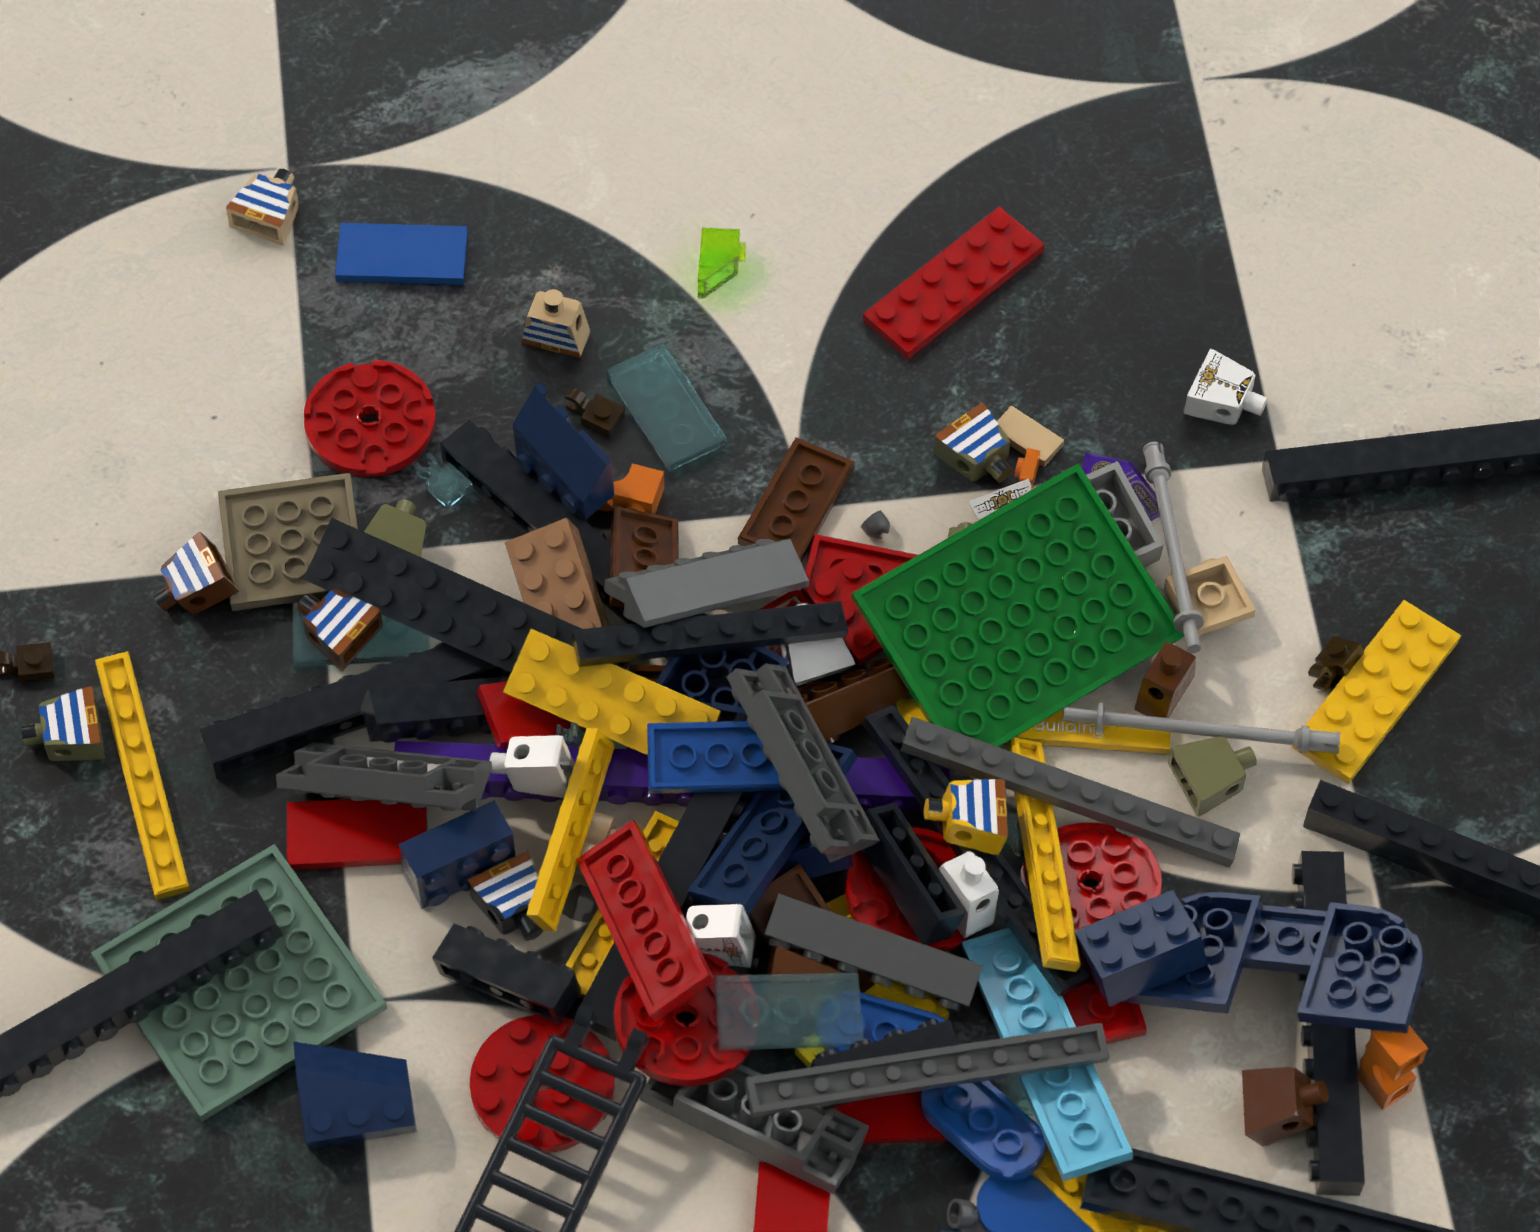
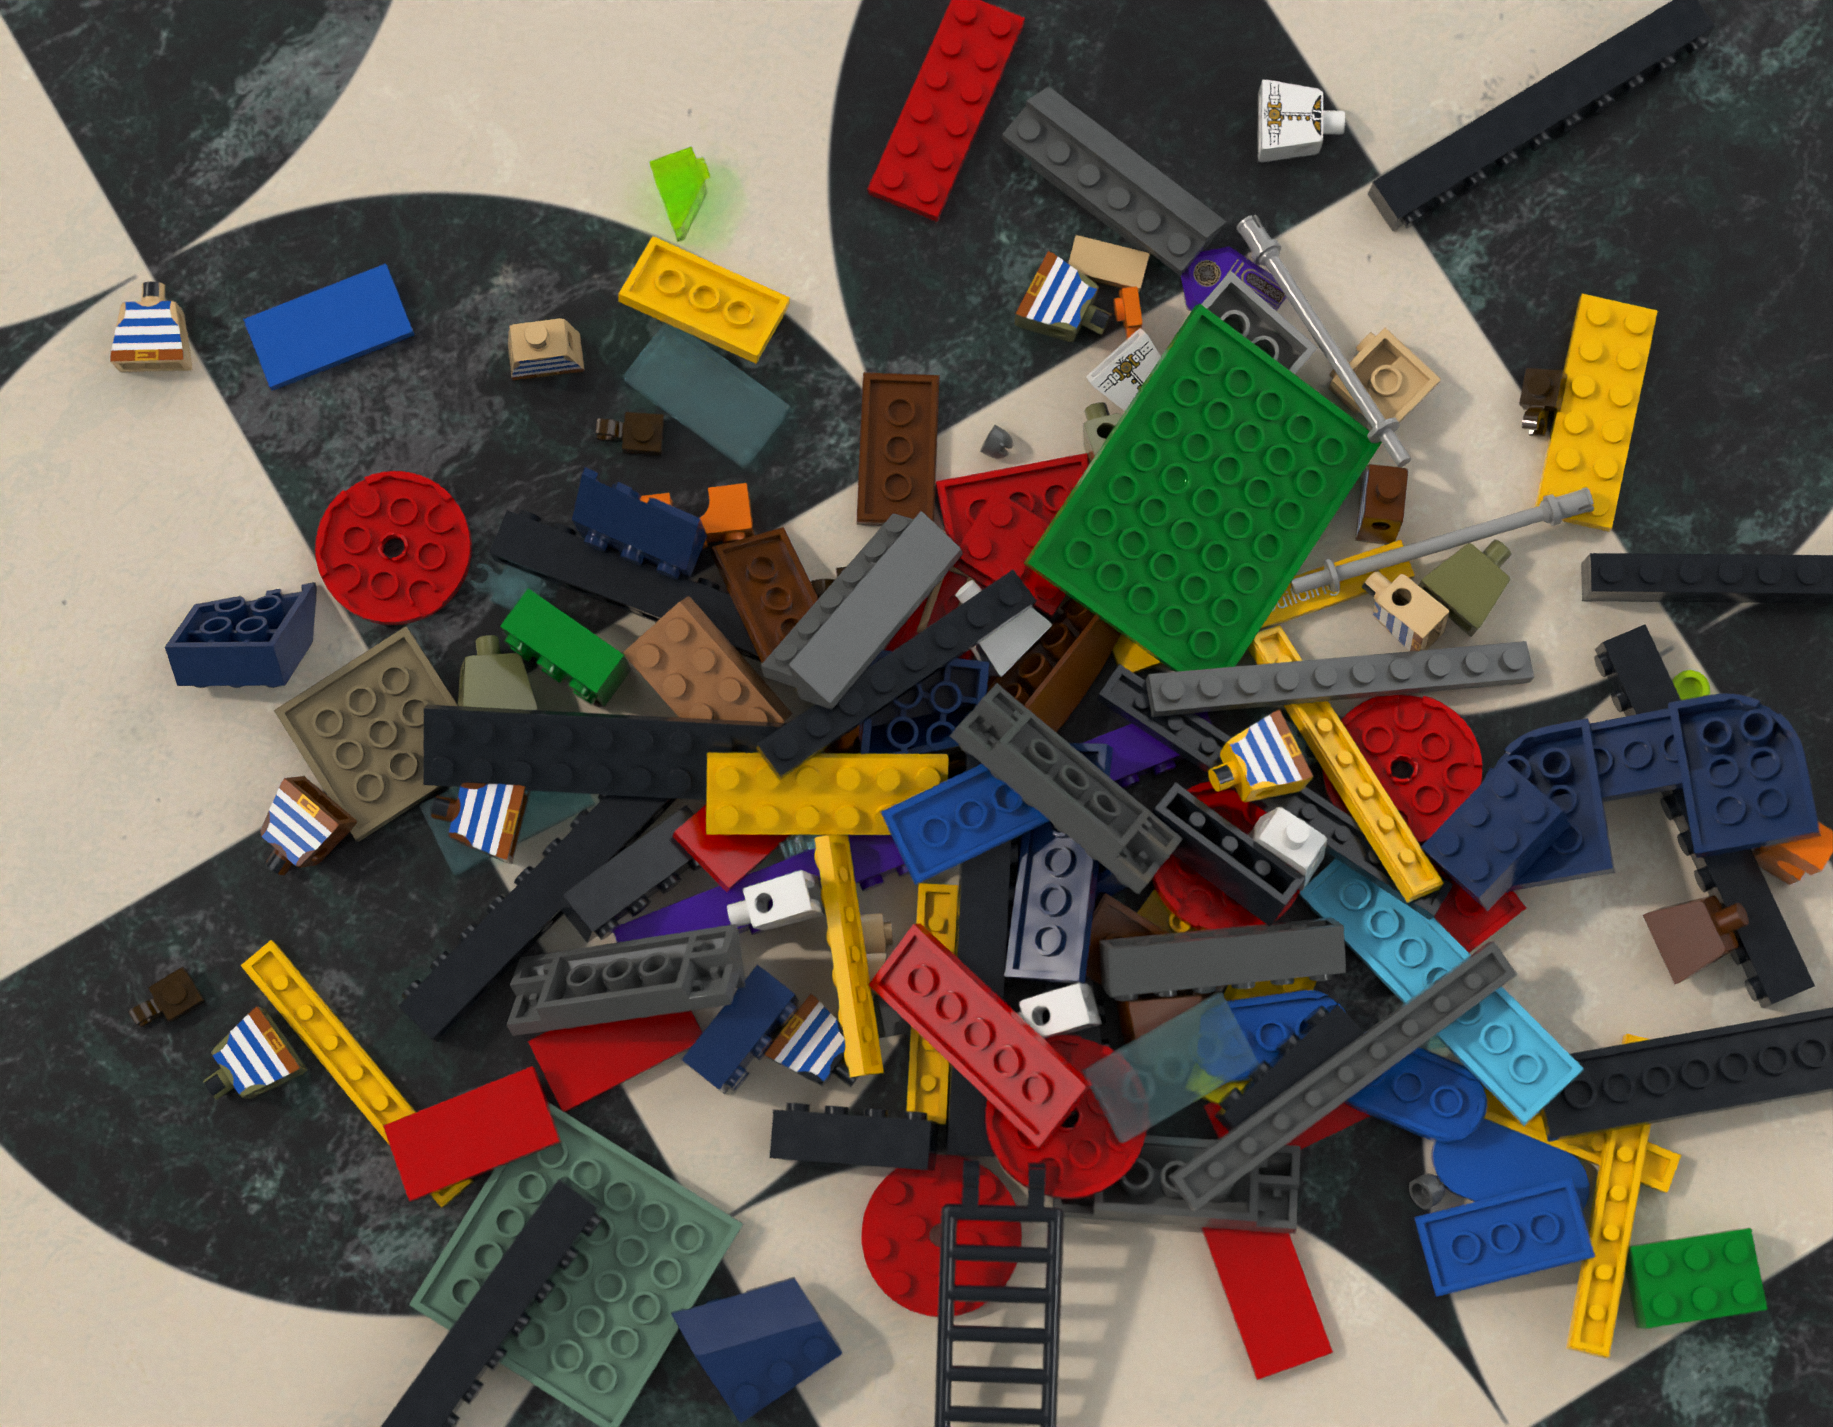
camera: 20 degrees left, 20 degrees up
(207, 846) = (472, 1134): none -> red tile
(221, 436) = (244, 640): none -> dark blue wedge
(463, 529) = (565, 649): none -> green brick
(697, 339) = (704, 299): none -> yellow plate
(1058, 379) = (1112, 181): none -> dark grey slope
(1150, 767) = (1418, 620): none -> tan torso

